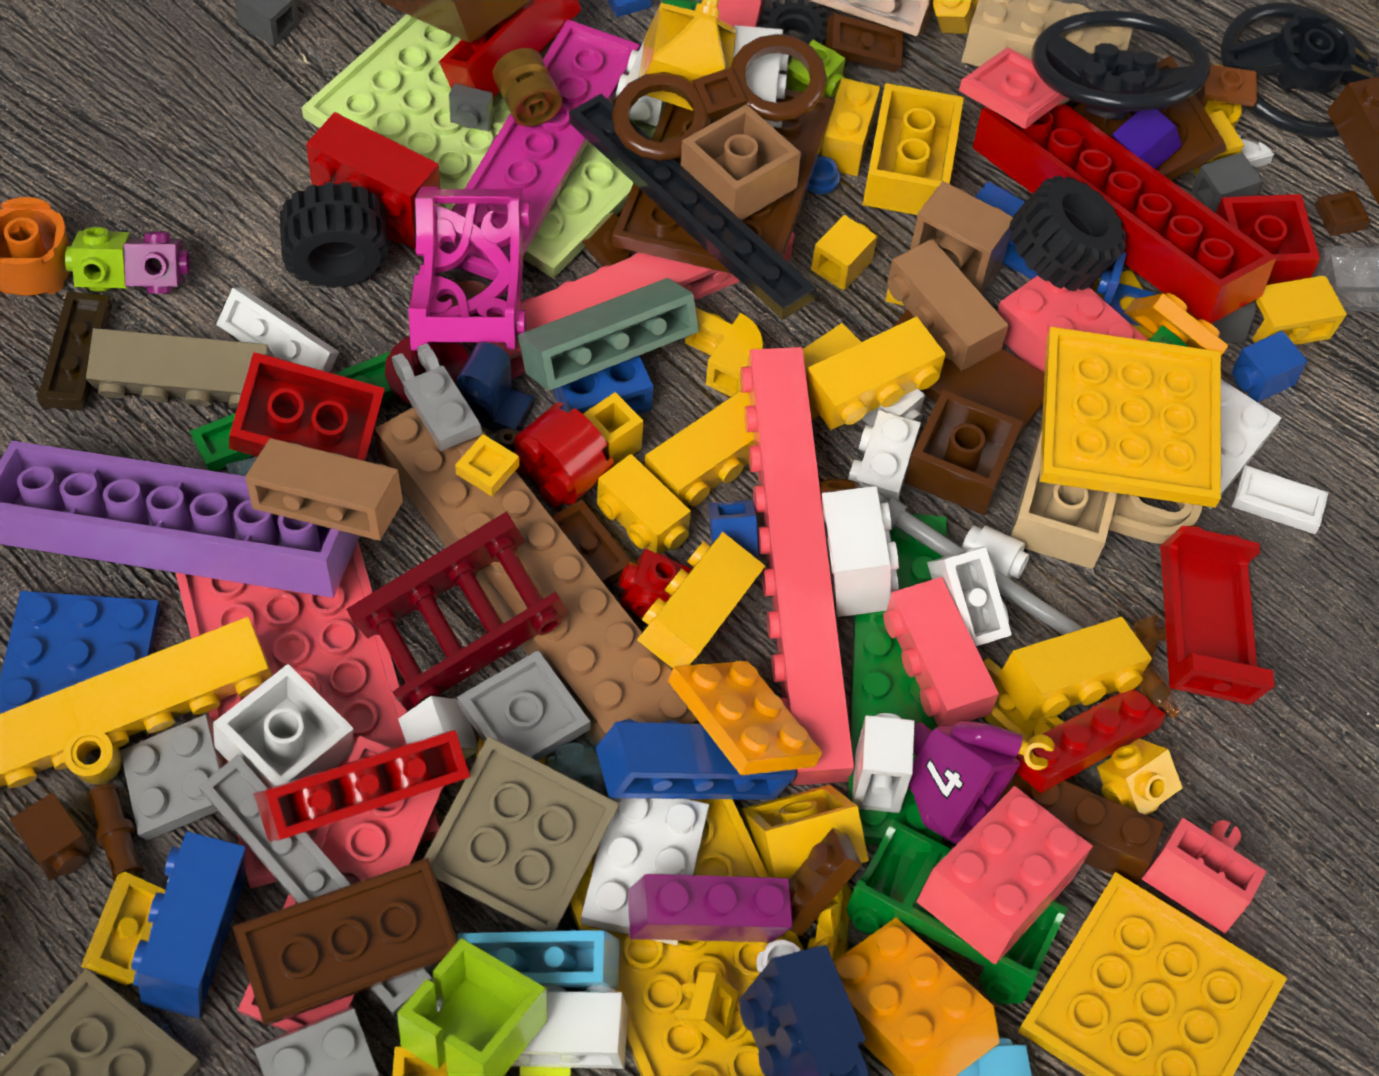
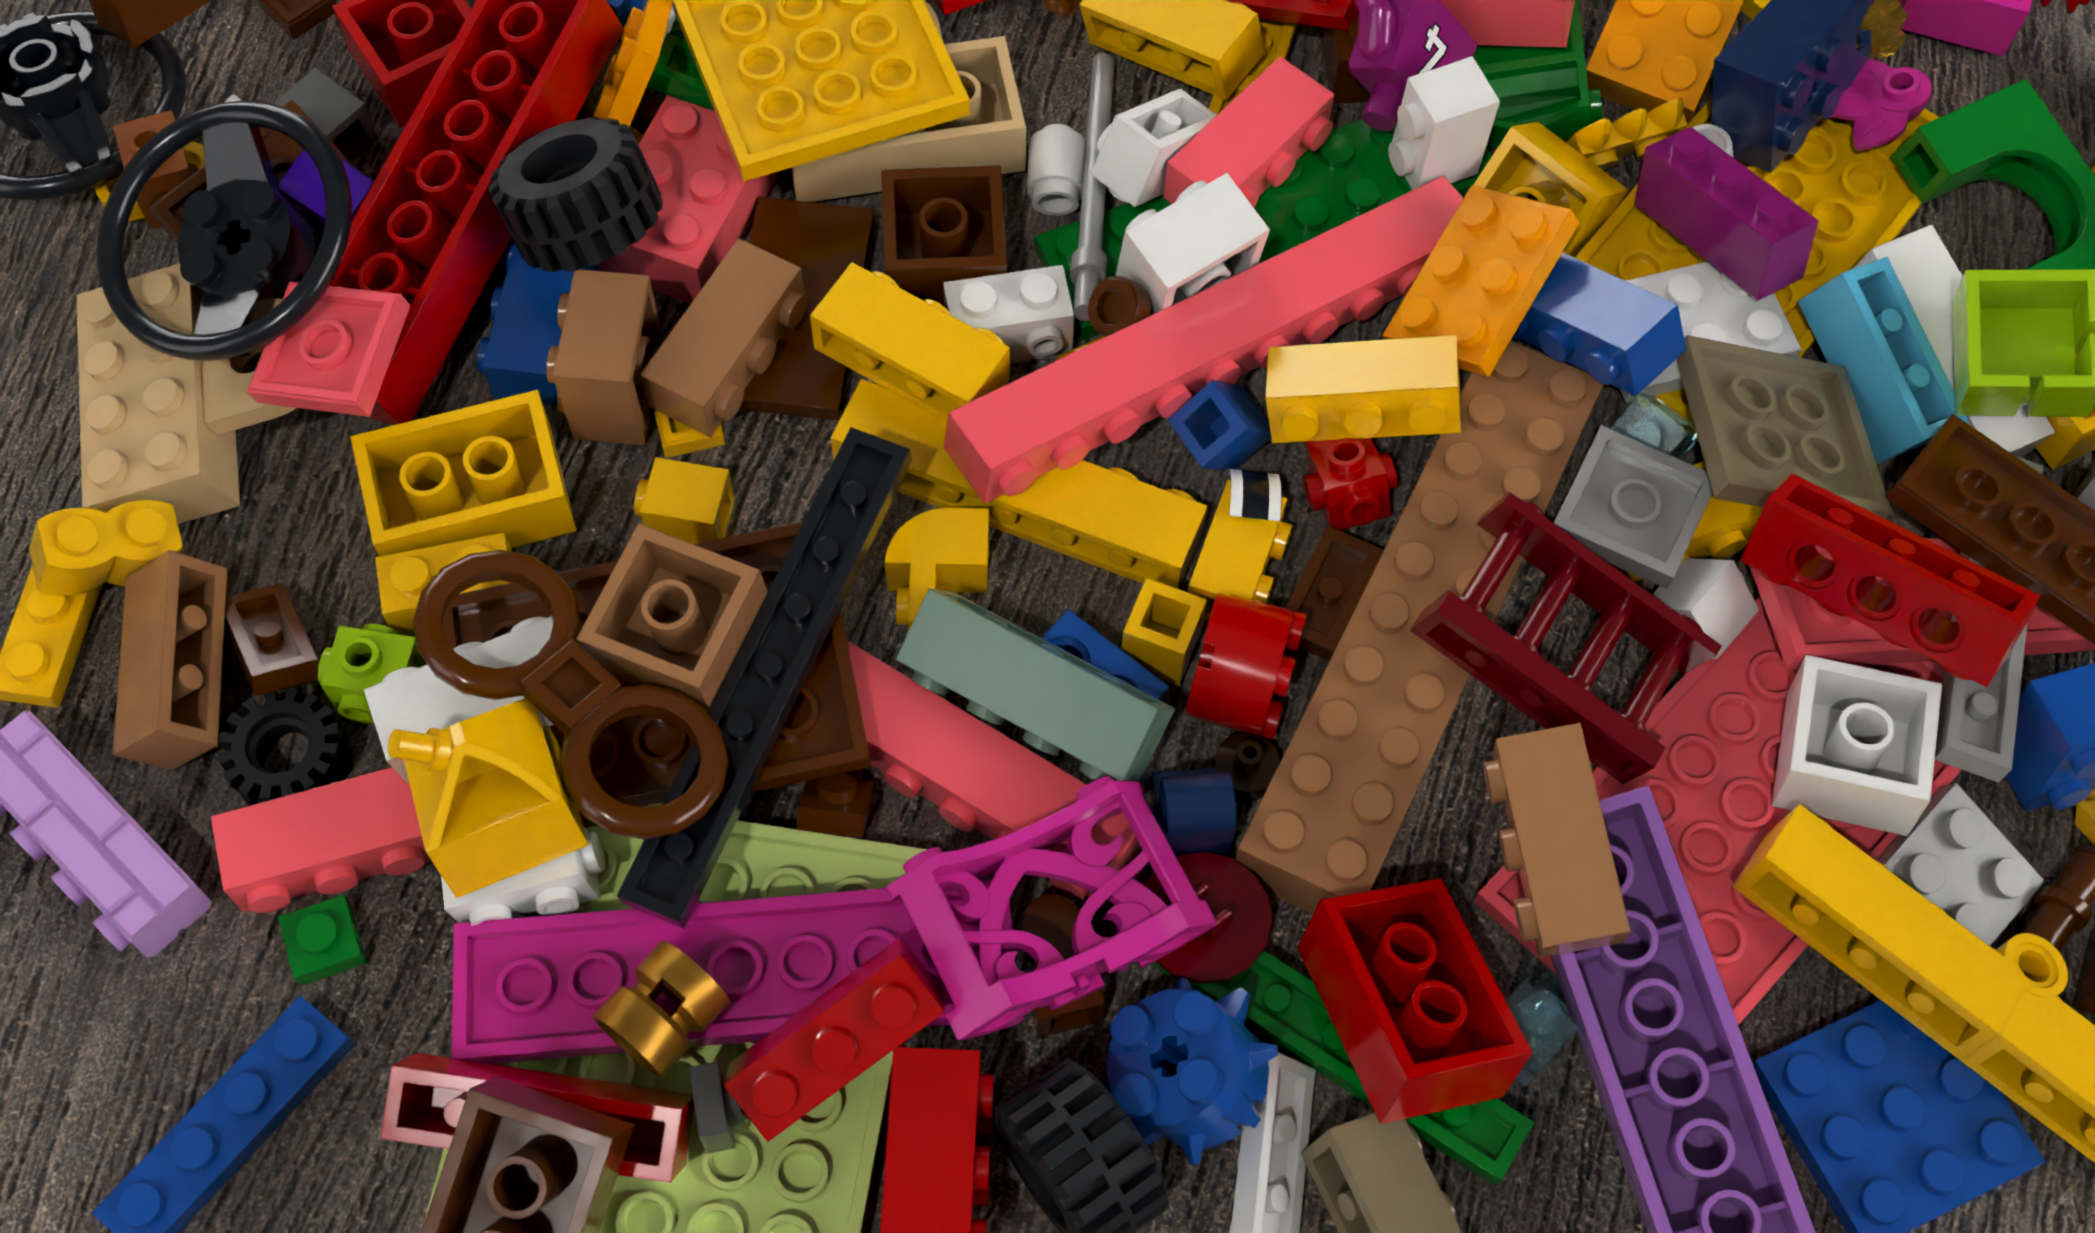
camera: 115 degrees left, 5 degrees up
(348, 307) = (1188, 1067): none -> blue brick
(437, 400) = (1287, 830): light grey hinge -> none
(462, 145) = (834, 1039): none -> red brick
(487, 465) = (1351, 706): yellow plate -> none
(678, 524) = (1255, 494): none -> sticker
(710, 1006) = (1807, 188): yellow tile -> none
(821, 878) = (1609, 130): reddish brown plate -> none

